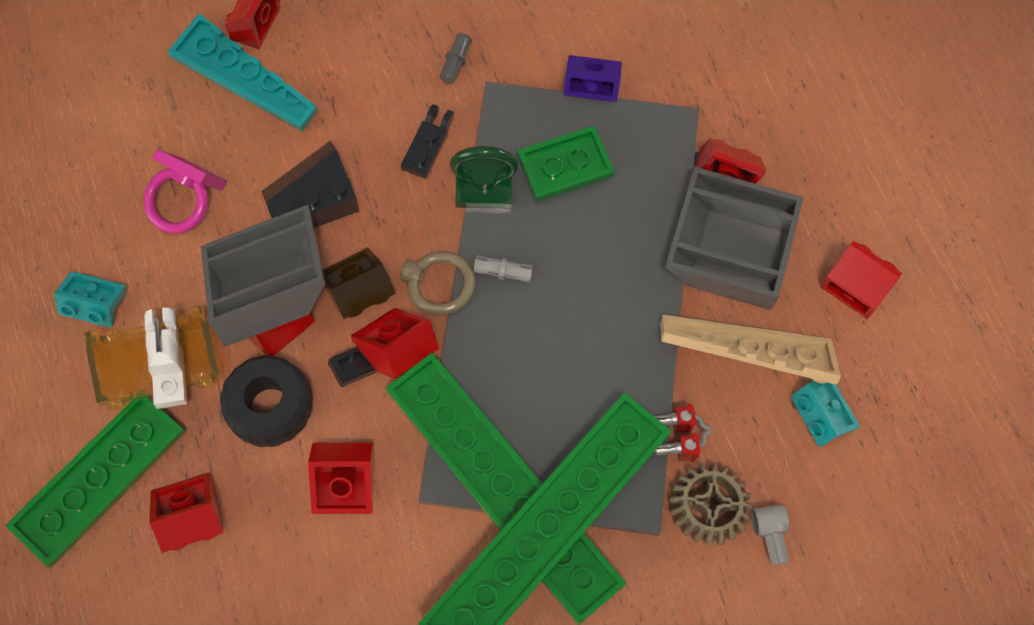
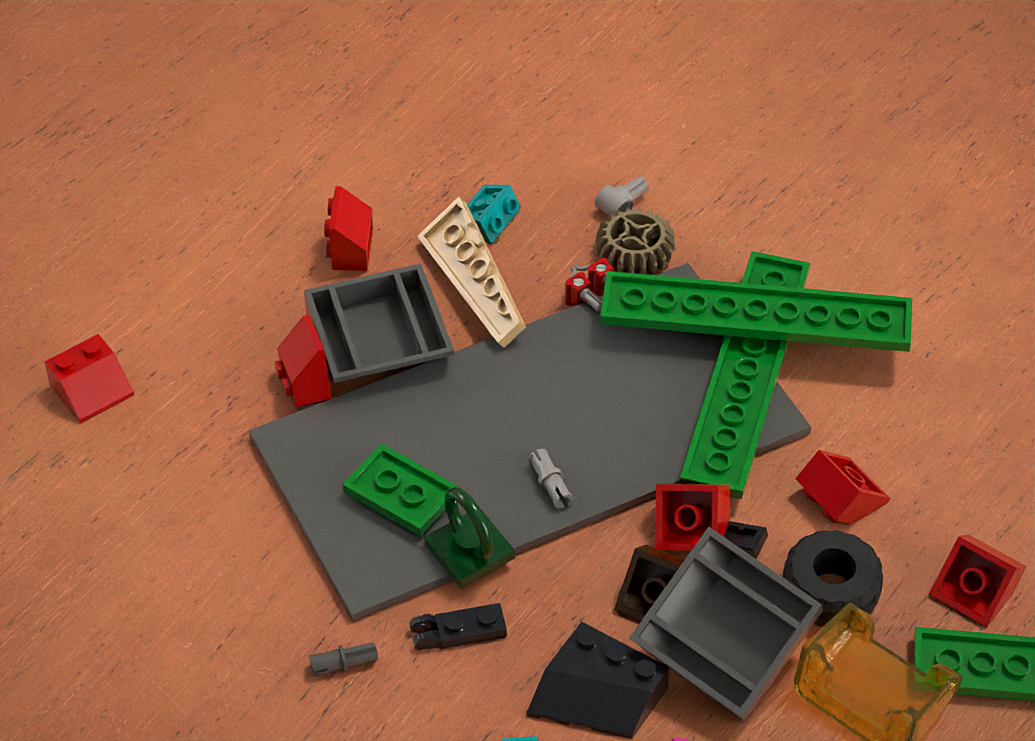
camera: 120 degrees left, 20 degrees down
(165, 360) = (873, 662): white plate -> none
(414, 272) = (611, 549): dark tan piece -> none
(592, 78) = (282, 522): dark purple brick -> none
(818, 34) = (88, 378): none -> red slope

